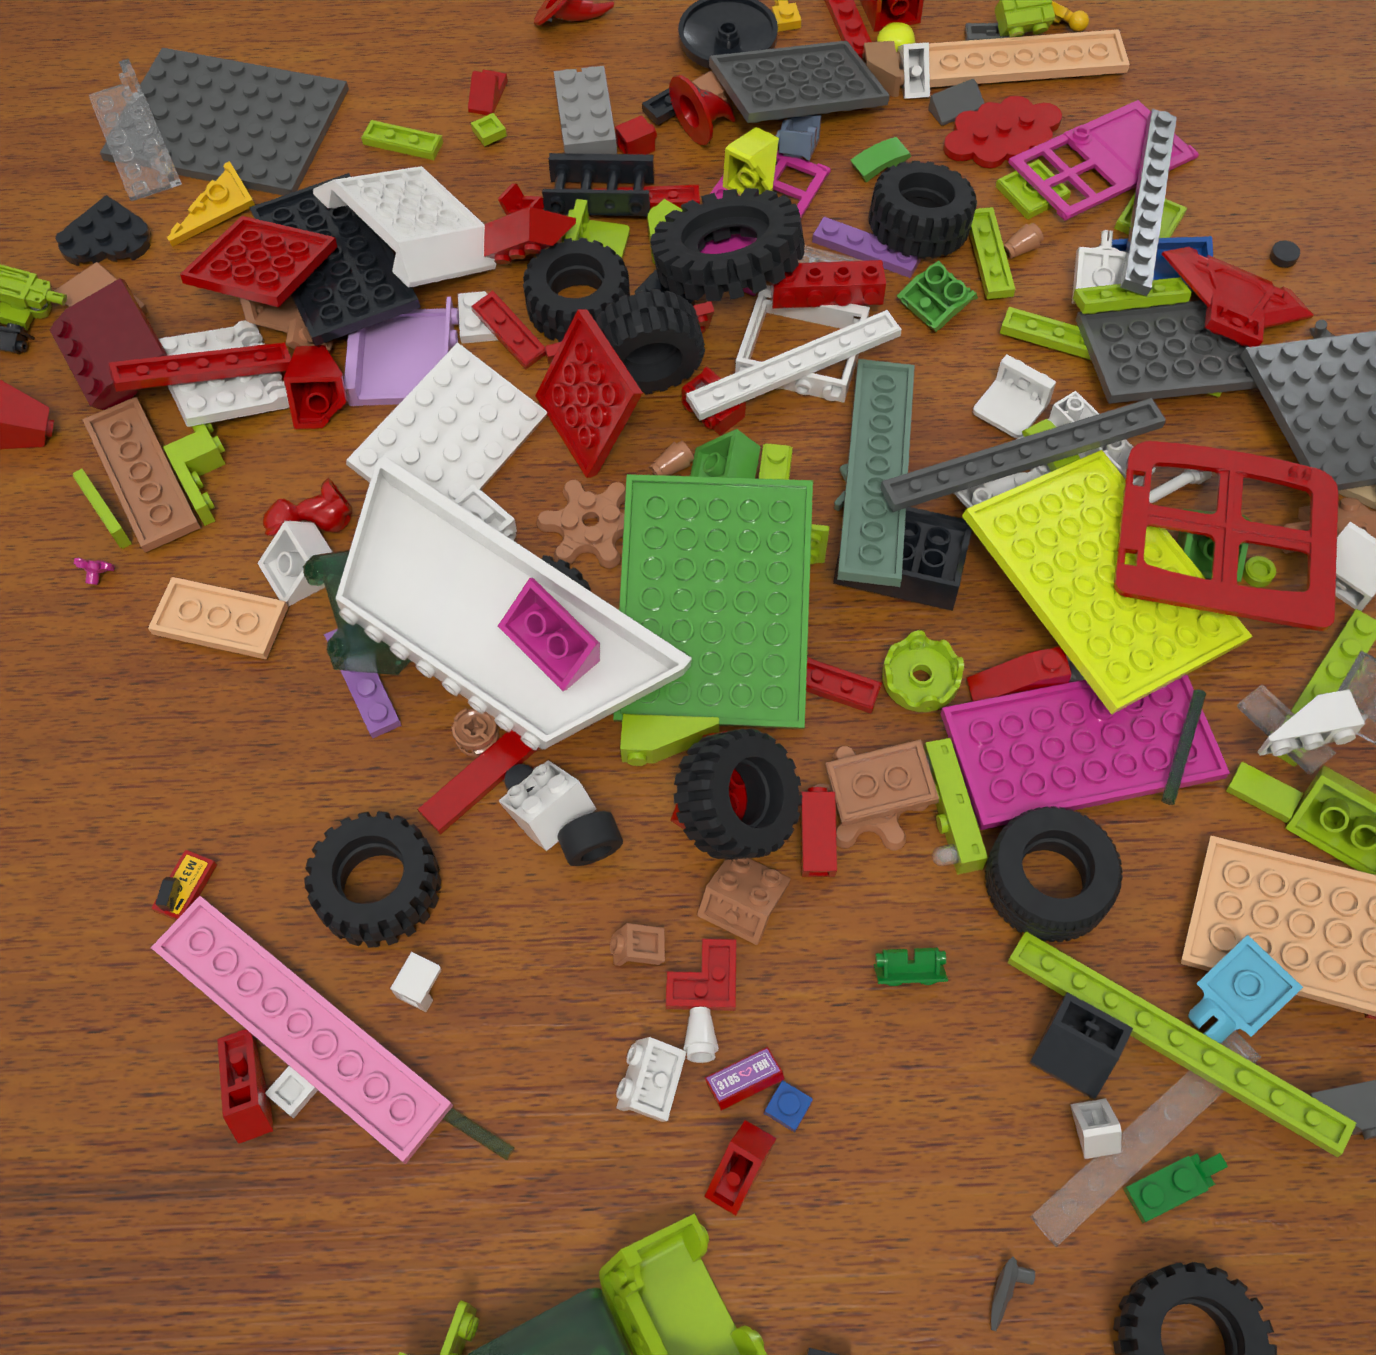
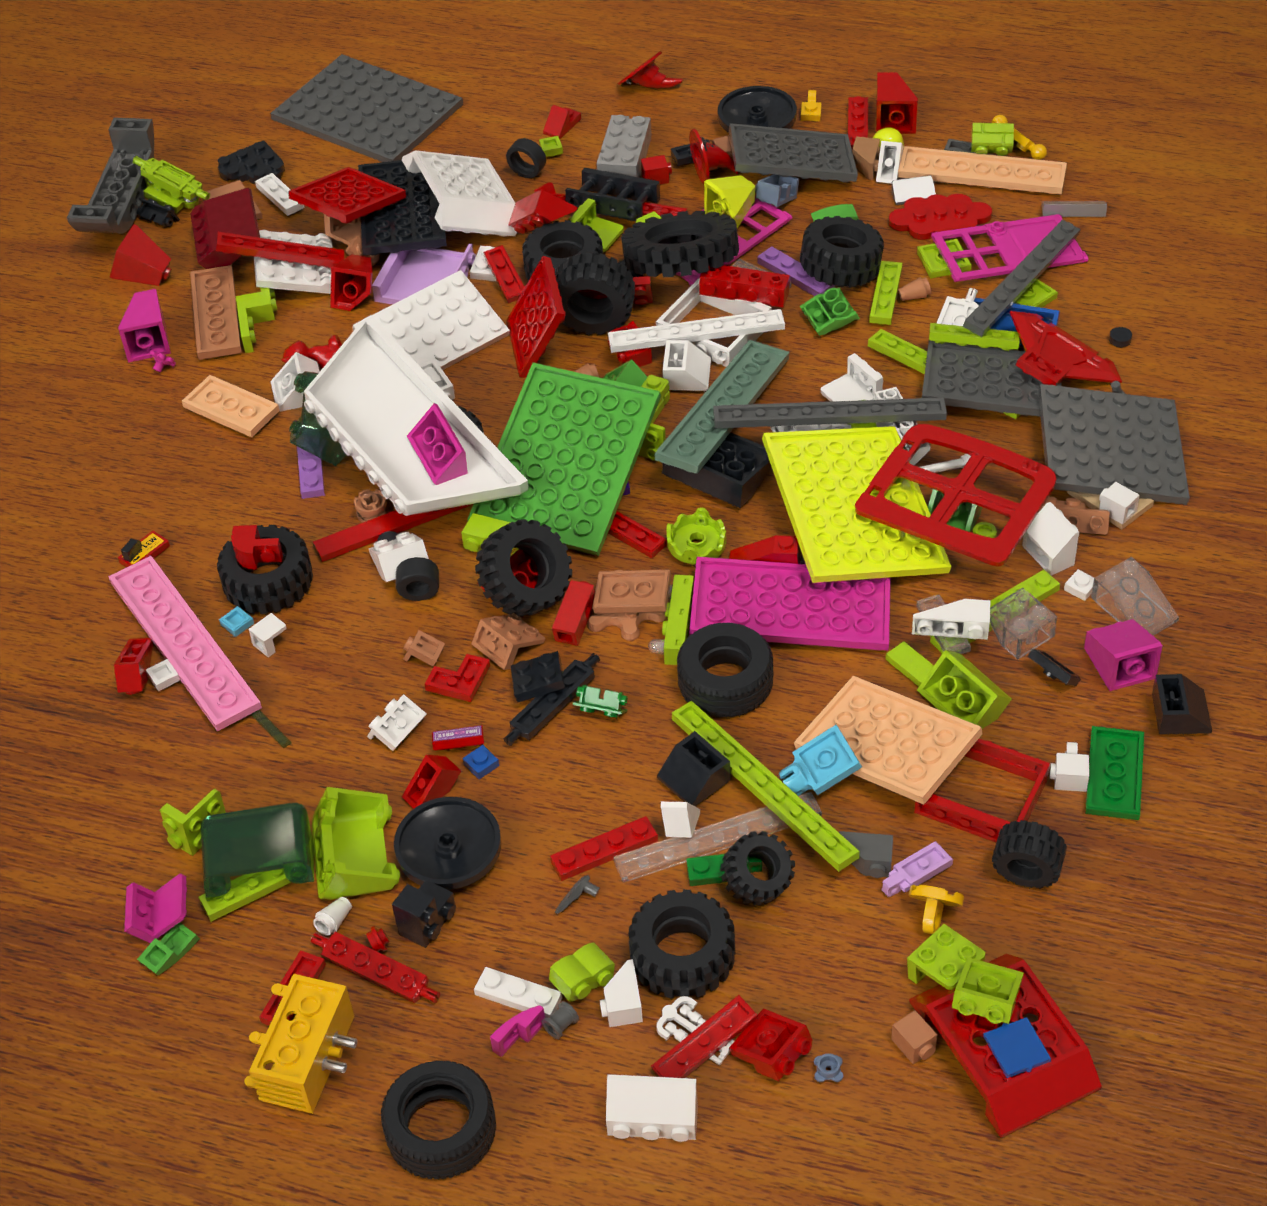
camera: 20 degrees right, 15 degrees down
(51, 525) = (144, 327): none -> dark pink slope
(101, 508) = (181, 328): lime tile -> none
(134, 137) = (297, 105): clear bracket -> none
(156, 271) = (278, 193): none -> white plate
(218, 203) = (333, 160): yellow wing -> none
(351, 871) = (251, 549): none -> red brick
(360, 967) = (236, 621): none -> medium azure tile
(402, 140) = (484, 142): lime tile -> none
(471, 141) = (521, 167): none -> black tyre
(581, 538) = (494, 401): nougat plate -> none
(700, 1036) = (439, 709): white cone -> none
(797, 417) = (686, 366): none -> white slope
(809, 1270) = (447, 842): none -> black dish
(812, 950) = (537, 676): none -> black plate
(842, 979) = (545, 707): none -> black plate
(1009, 1200) = (603, 848): none -> red plate
(1151, 88) = (1075, 208): none -> light grey slope
(1183, 747) = (860, 618): clear green bar -> none
(1262, 1188) = (773, 856): none -> black tyre

